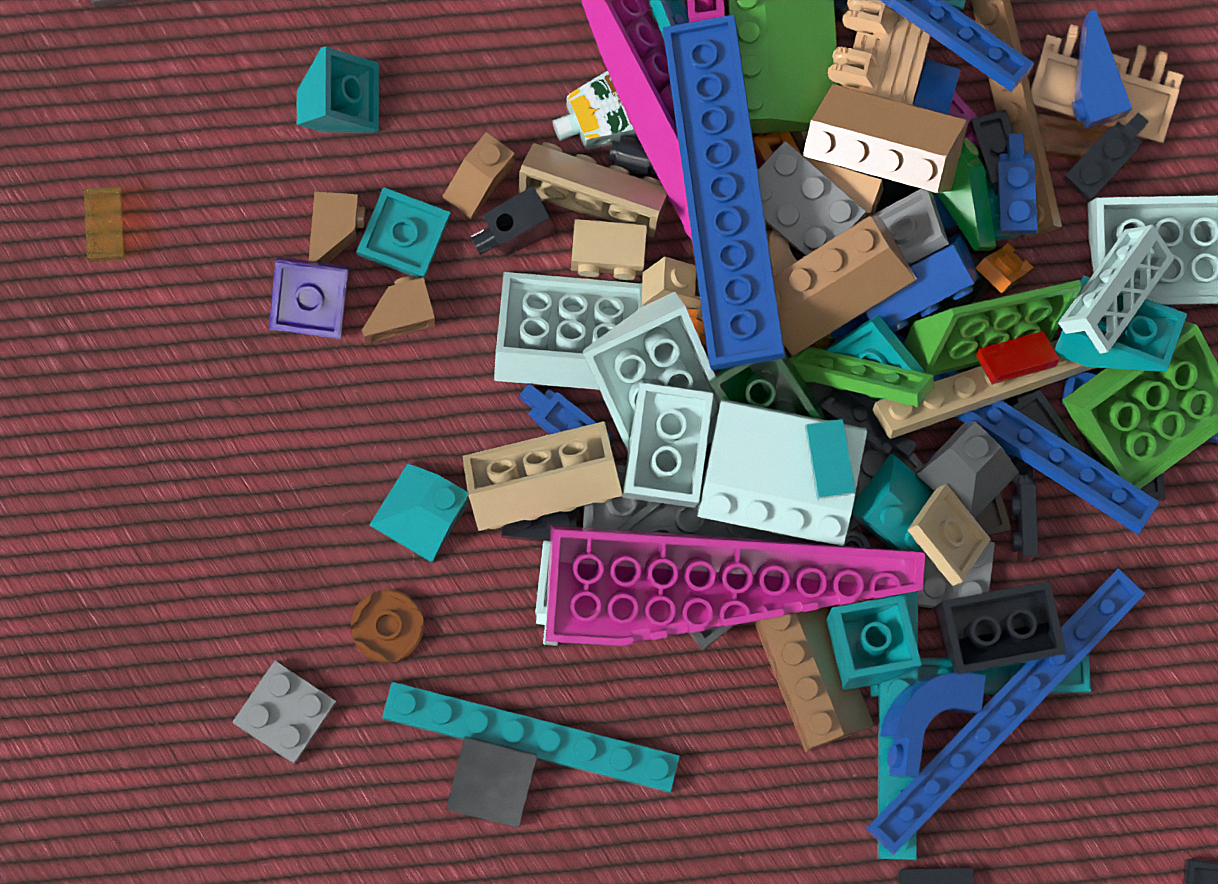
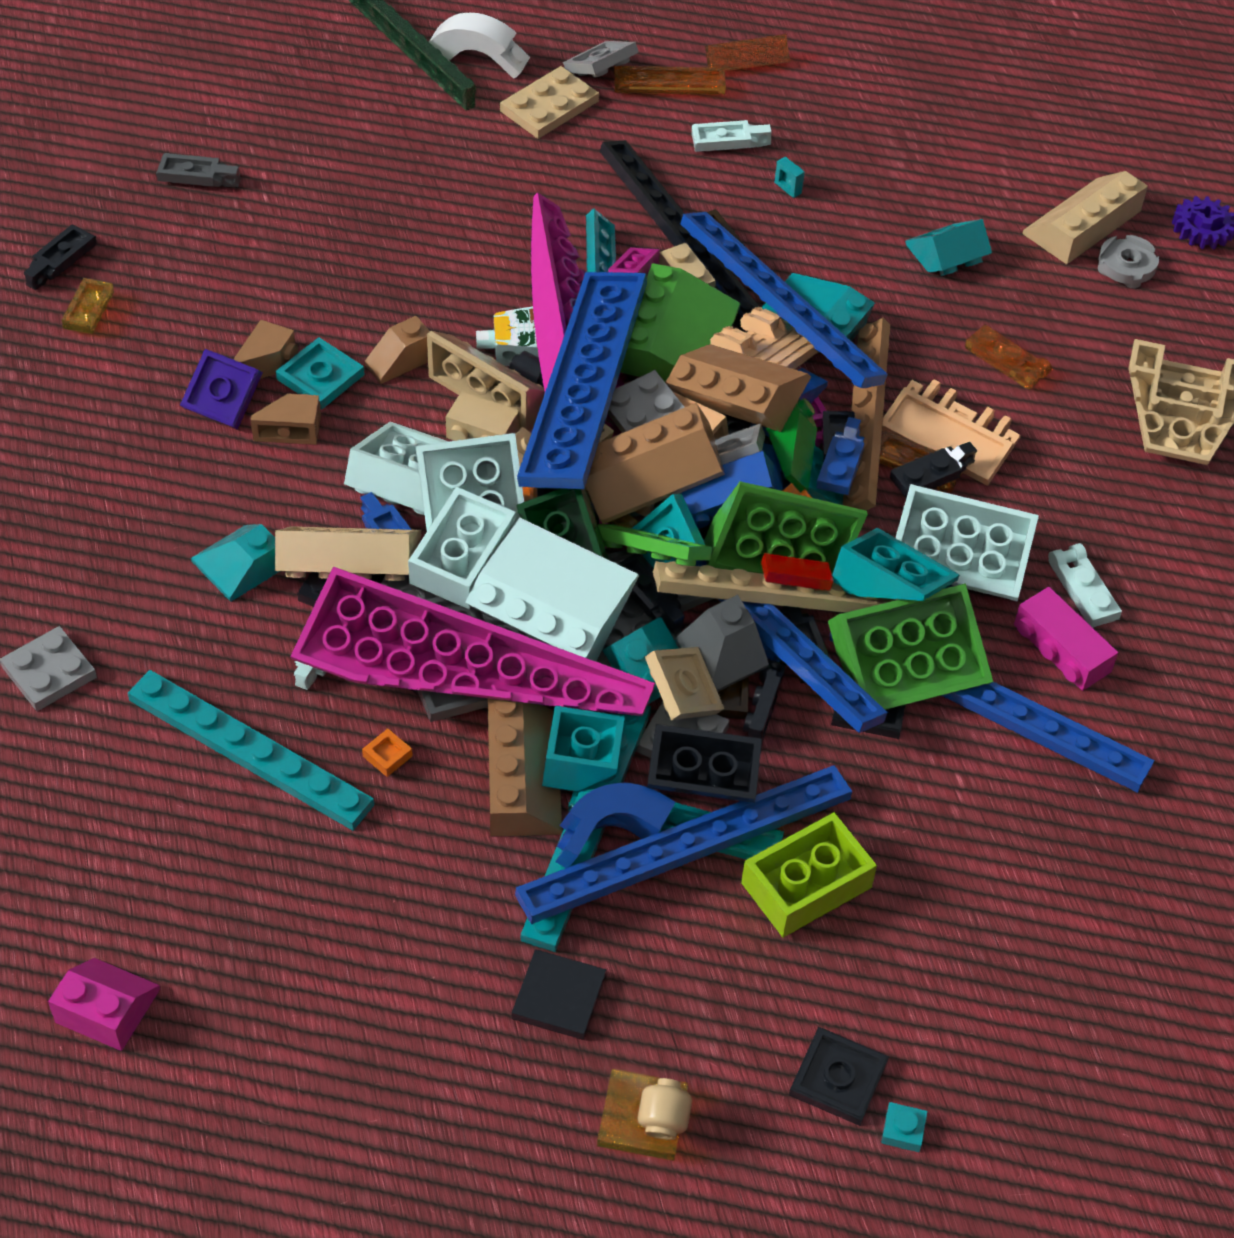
camera: 25 degrees right, 25 degrees down
(37, 160) = (58, 255): none -> black hinge
(339, 94) = (314, 272): teal slope -> none
(387, 626) = (168, 633): dark orange tile -> none
(491, 781) = (197, 767): black tile -> none
(529, 220) = (414, 384): black torso -> none
(672, 698) = (387, 752): none -> orange plate
(829, 459) = (595, 581): teal tile -> none
(1098, 85) = (941, 412): blue slope -> none
(1114, 277) = (906, 527): light aqua fence -> none
(1132, 703) = (808, 874): none -> lime brick

